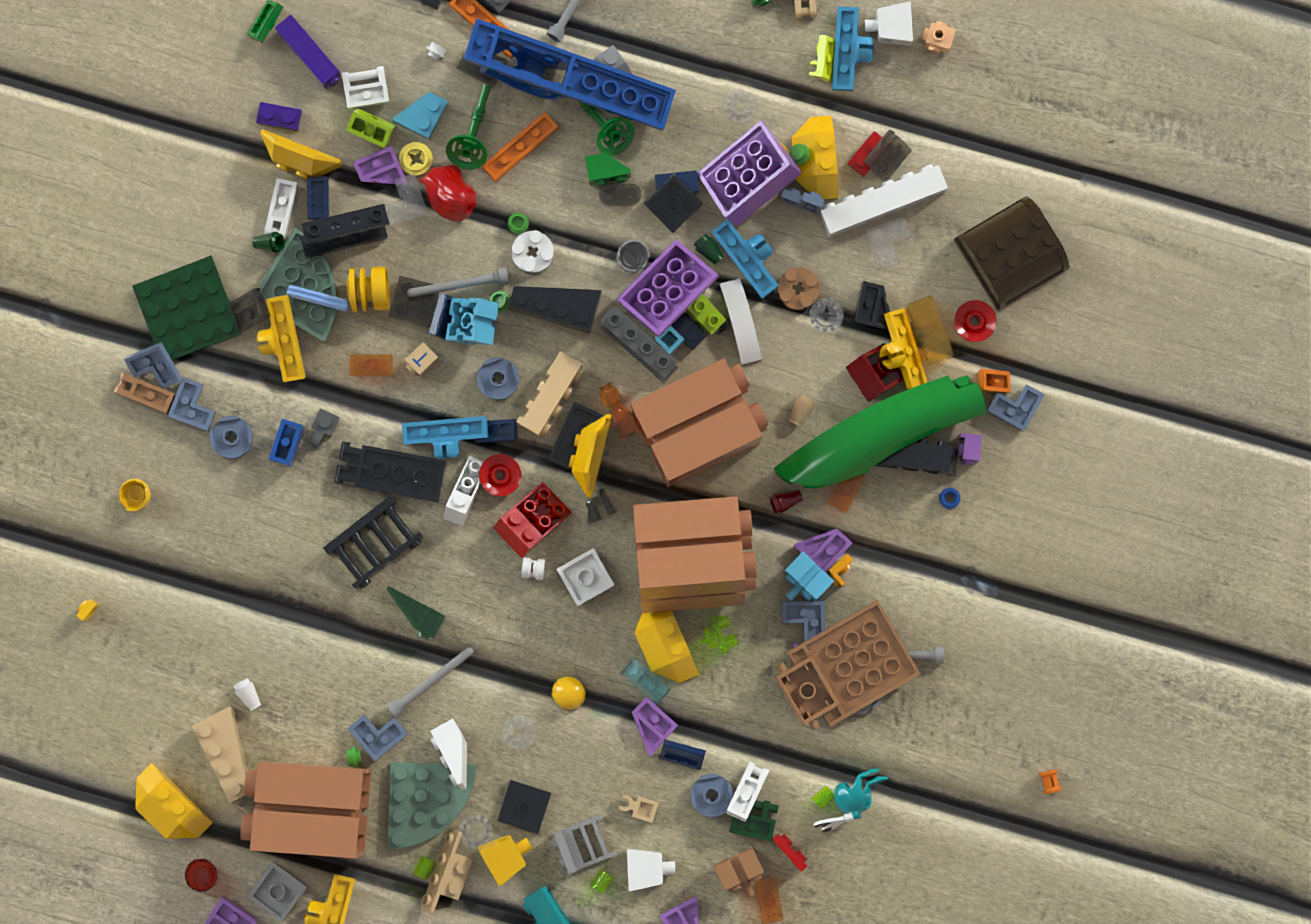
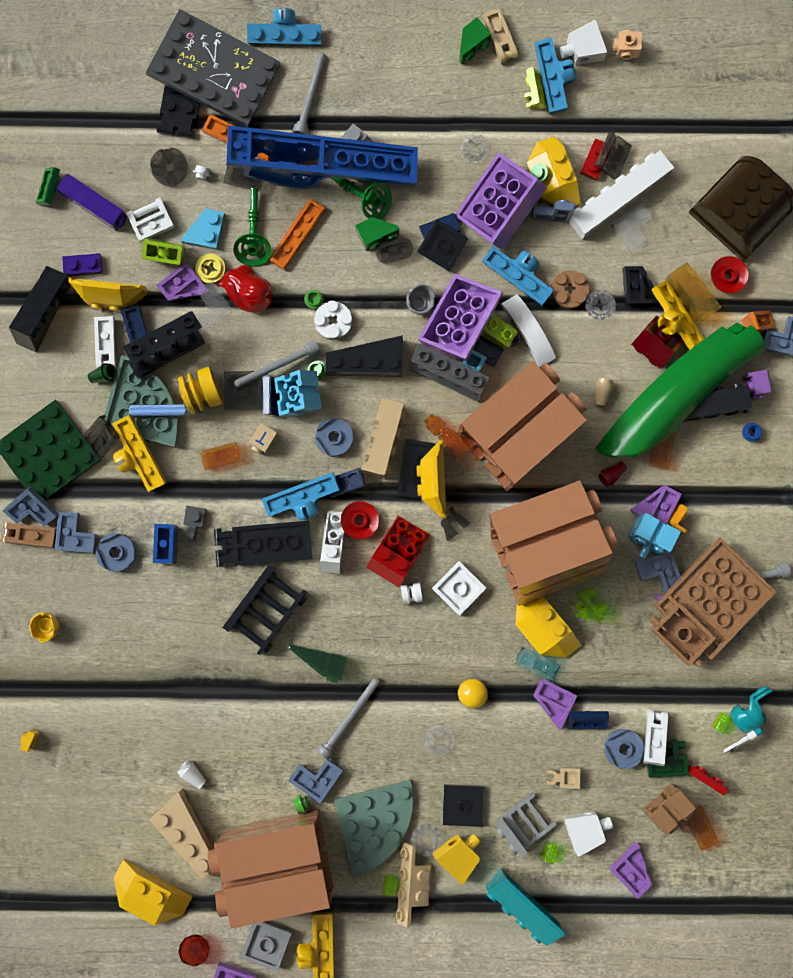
camera: 15 degrees left, 0 degrees up
(221, 153) = (39, 309): none -> black wedge
(404, 23) = (168, 156): none -> clear smoke plate
(454, 751) = (386, 772): white slope -> none
(706, 247) = (483, 276): dark green cone -> none

